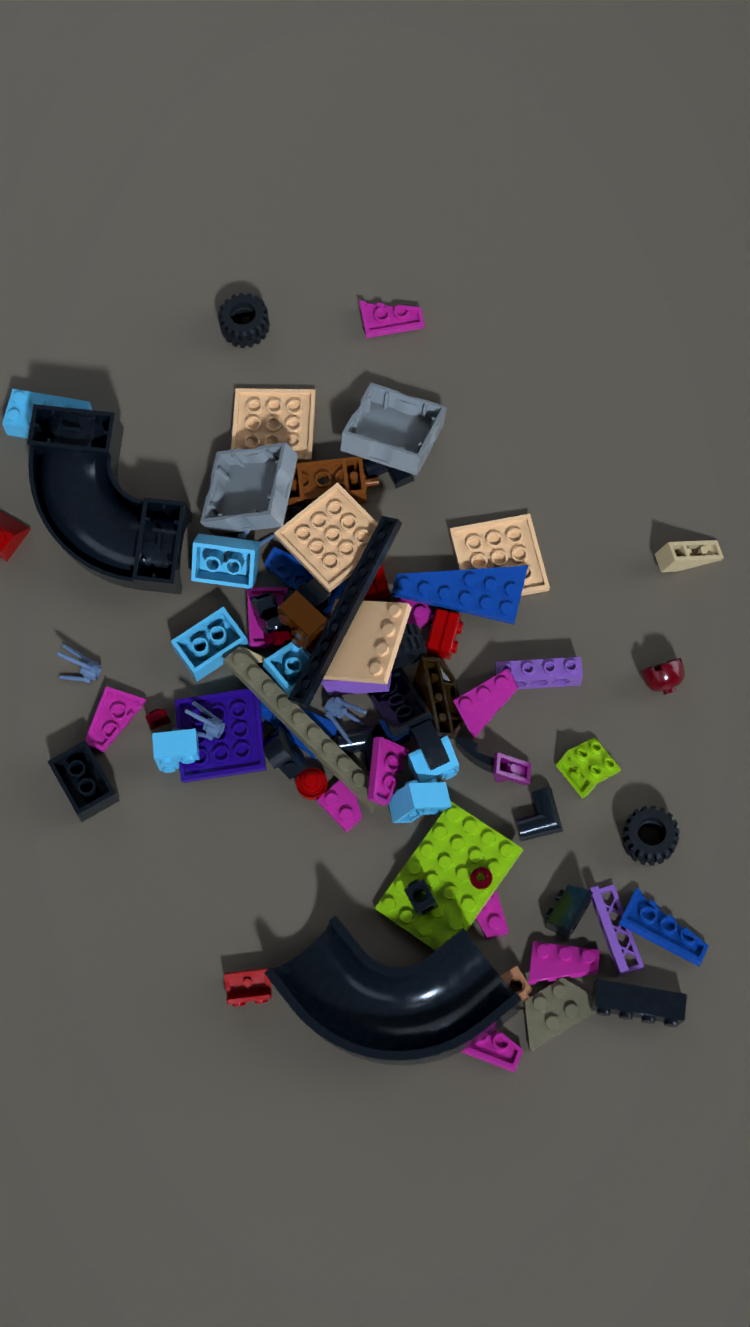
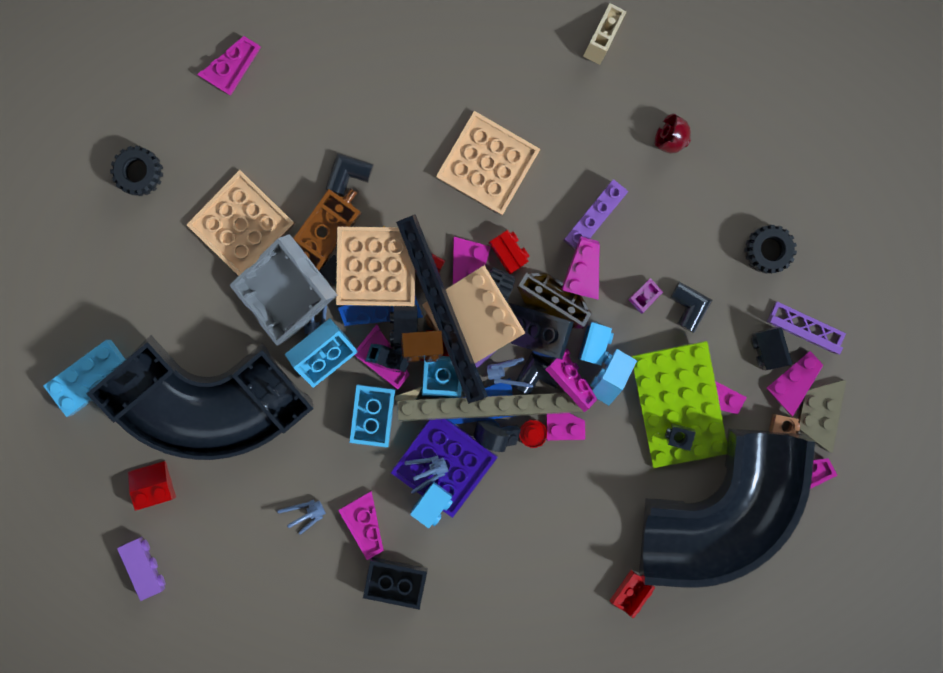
camera: 55 degrees left, 20 degrees up
(157, 718) = (392, 495): dark red plate -> none
(278, 638) = (412, 368): dark red plate -> none
(393, 429) = (327, 147): light grey tile -> none
(430, 744) = (588, 339): black slope -> none
(469, 750) = (606, 309): black slope -> none
(477, 592) = (501, 202): blue wing -> none
(481, 884) = (699, 383): dark red plate -> none
(587, 766) = (687, 243): lime bracket -> none
(638, 1002) = (867, 359): black brick -> none
(654, 925) = (829, 301): blue wing -> none

